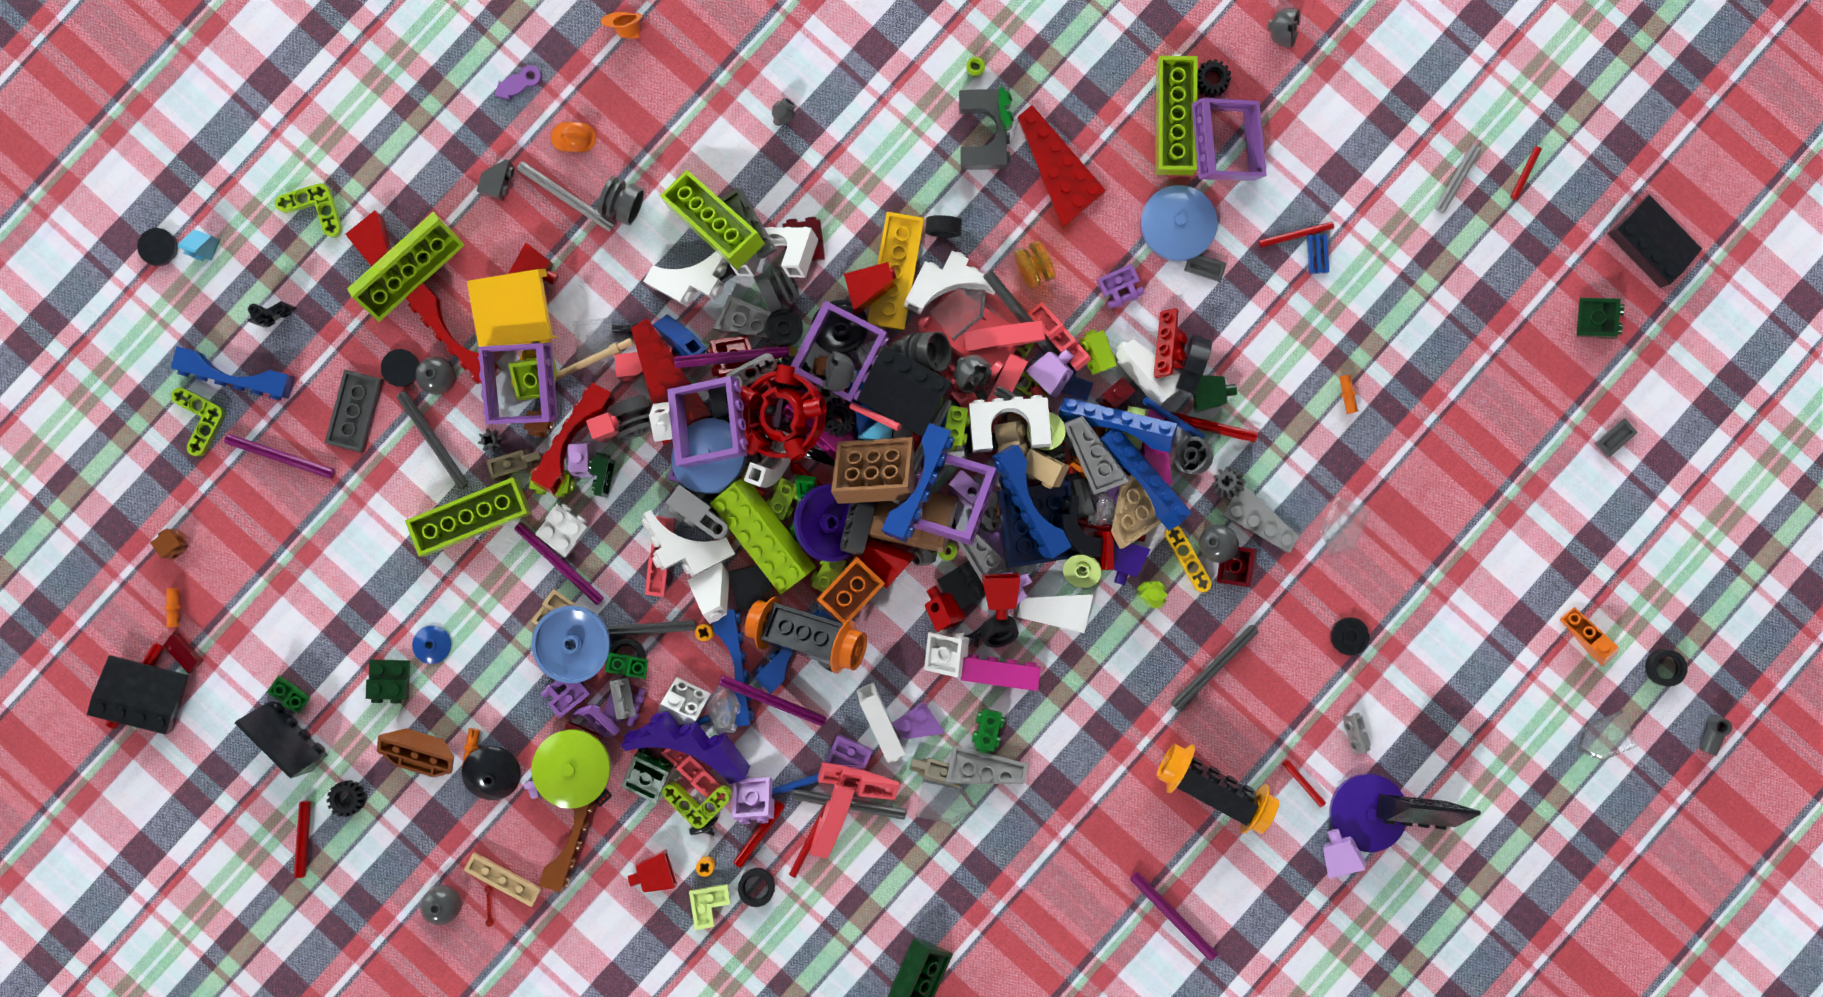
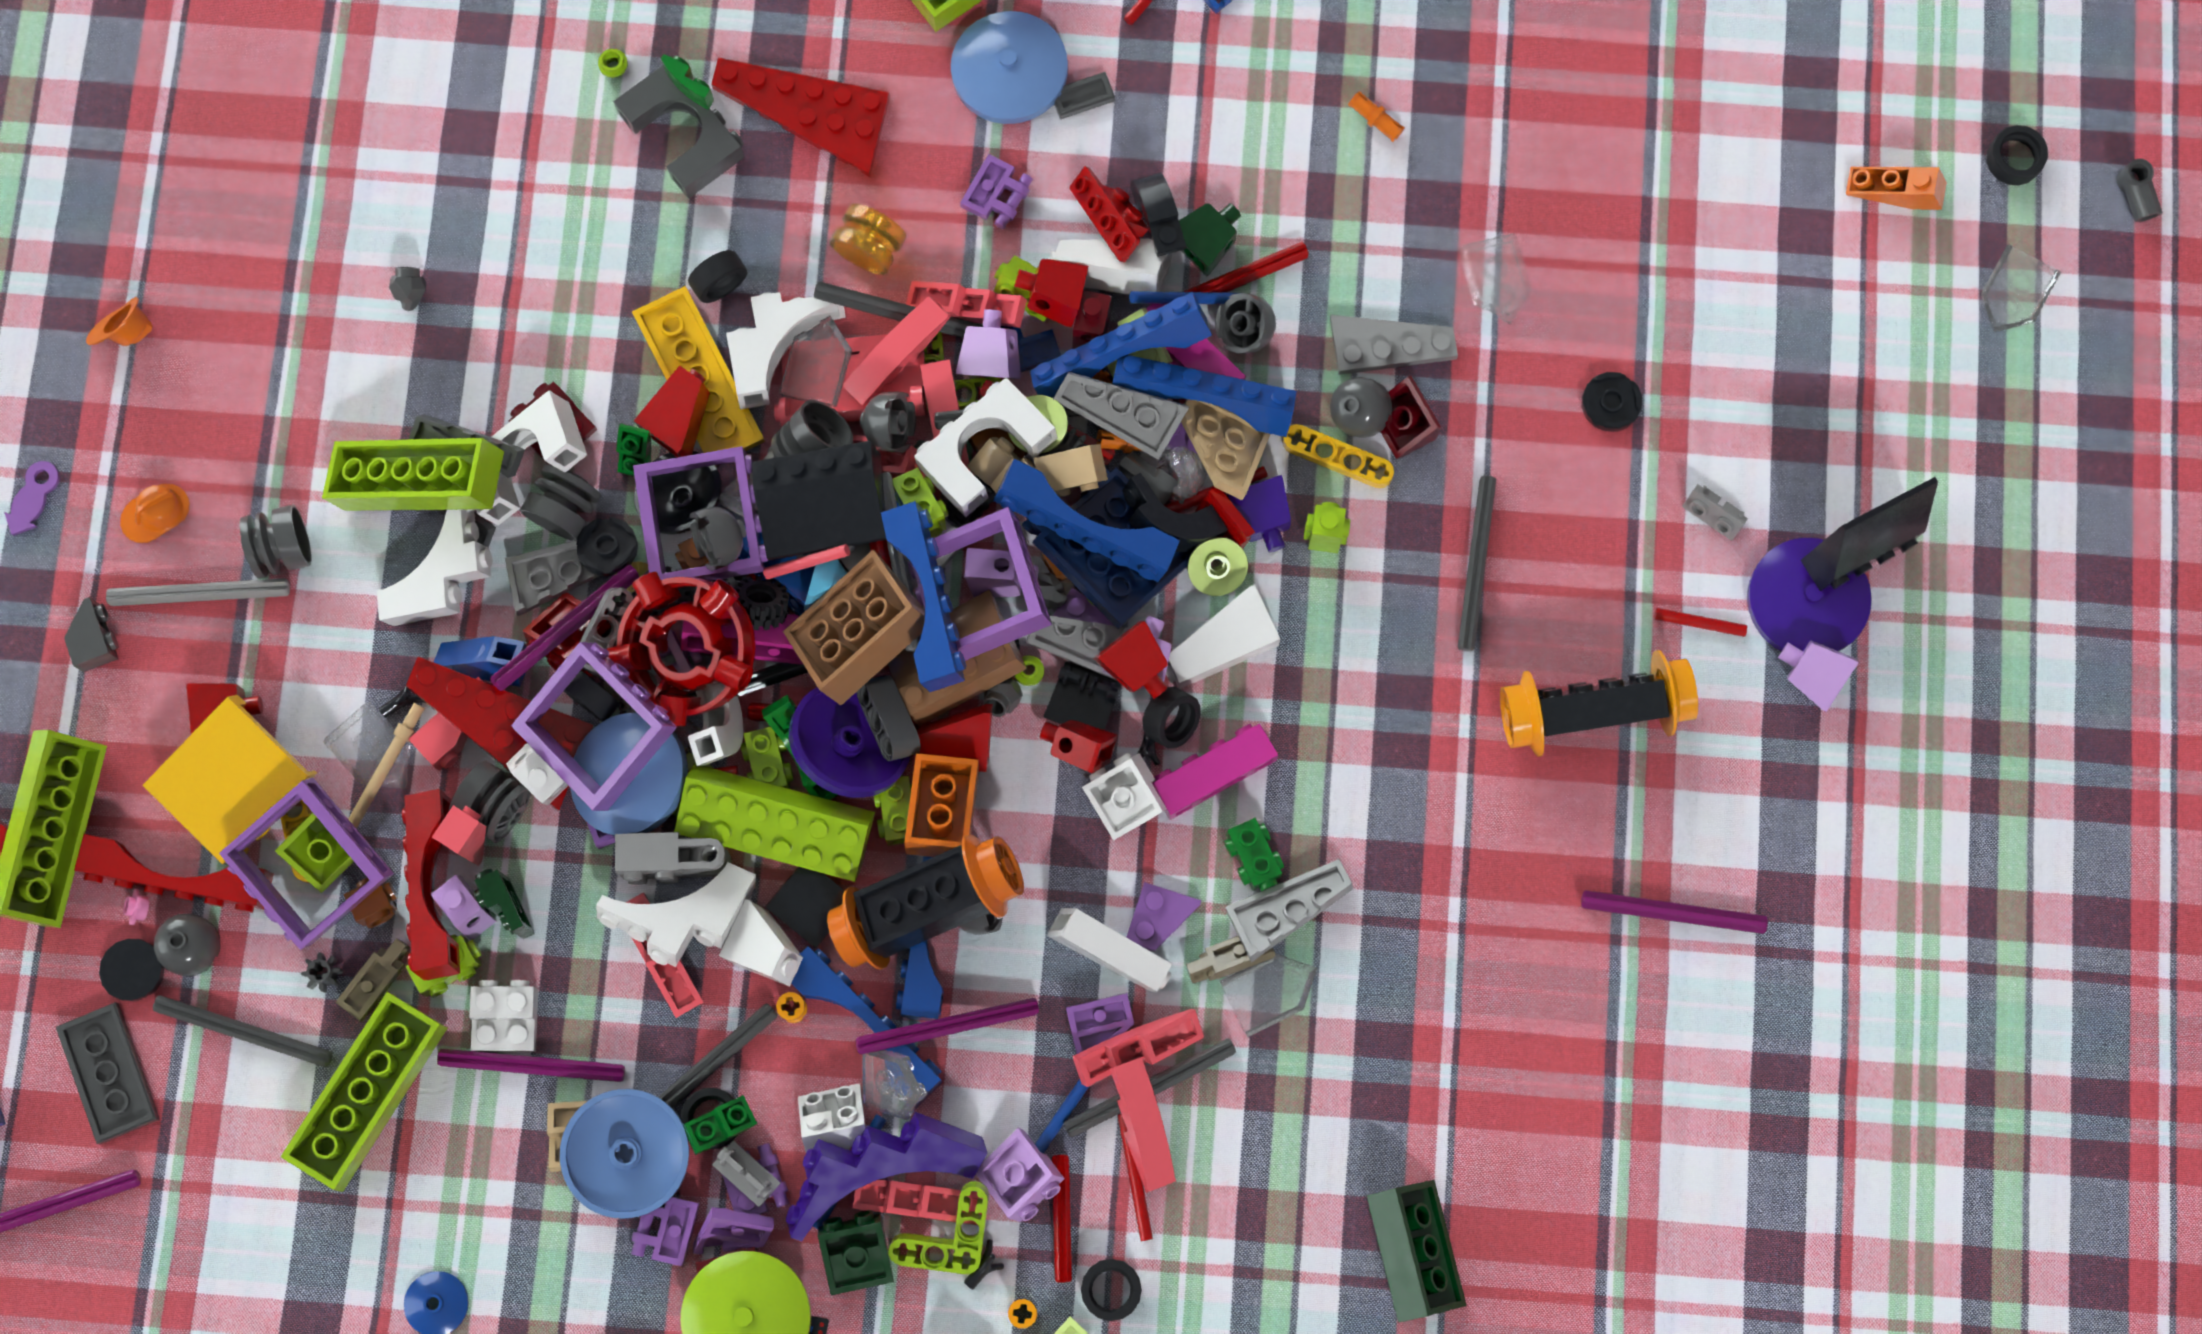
camera: 35 degrees left, 10 degrees down
(423, 338) = (136, 907): none -> bright pink plate
(833, 288) = (633, 448): none -> green slope
(1109, 366) = (1054, 289): none -> red torso
(1233, 487) = (1325, 319): dark grey gear -> none

